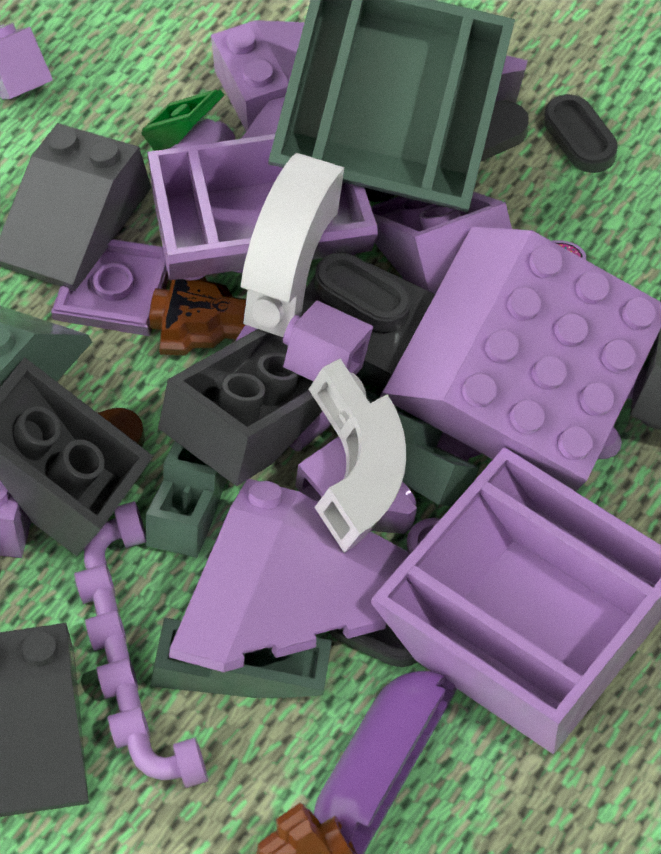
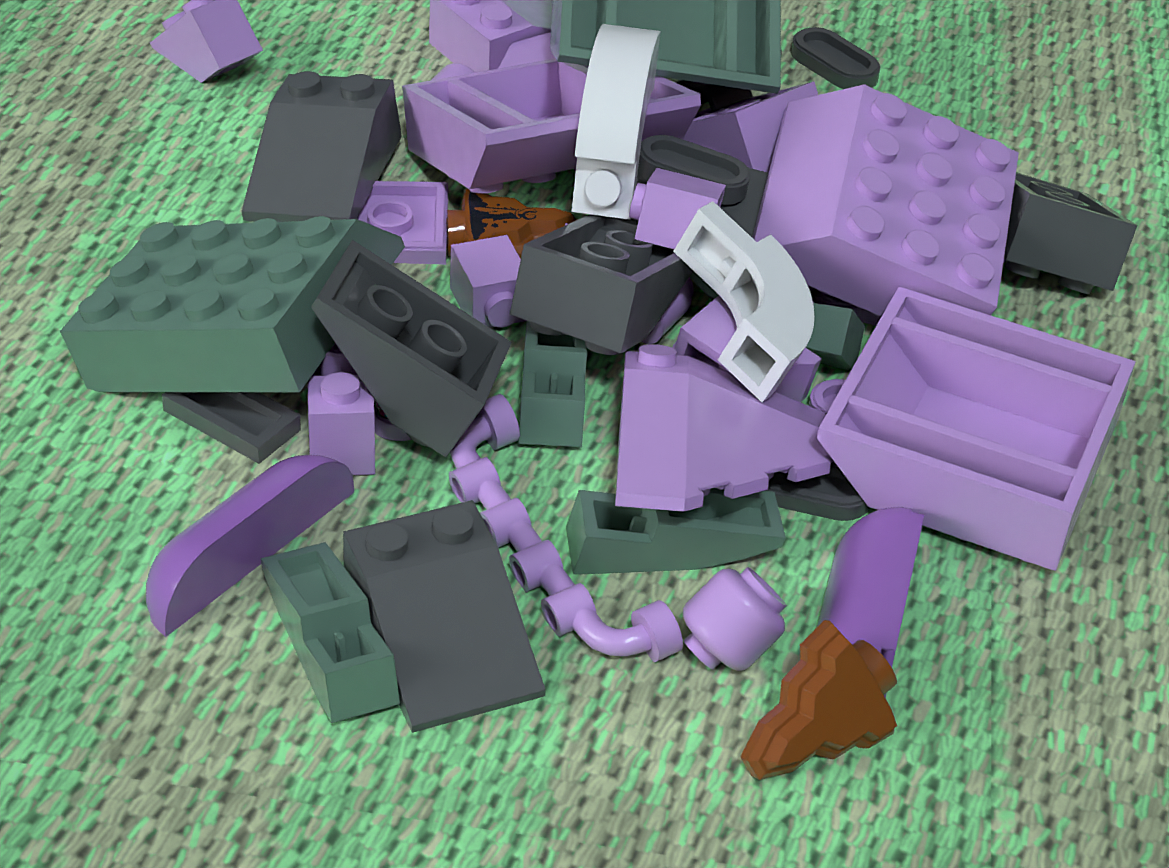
camera: 20 degrees left, 15 degrees down
(161, 359) = (485, 279): none -> lavender brick
(179, 119) = (427, 60): green slope -> none
(251, 767) = (733, 619): none -> lavender head

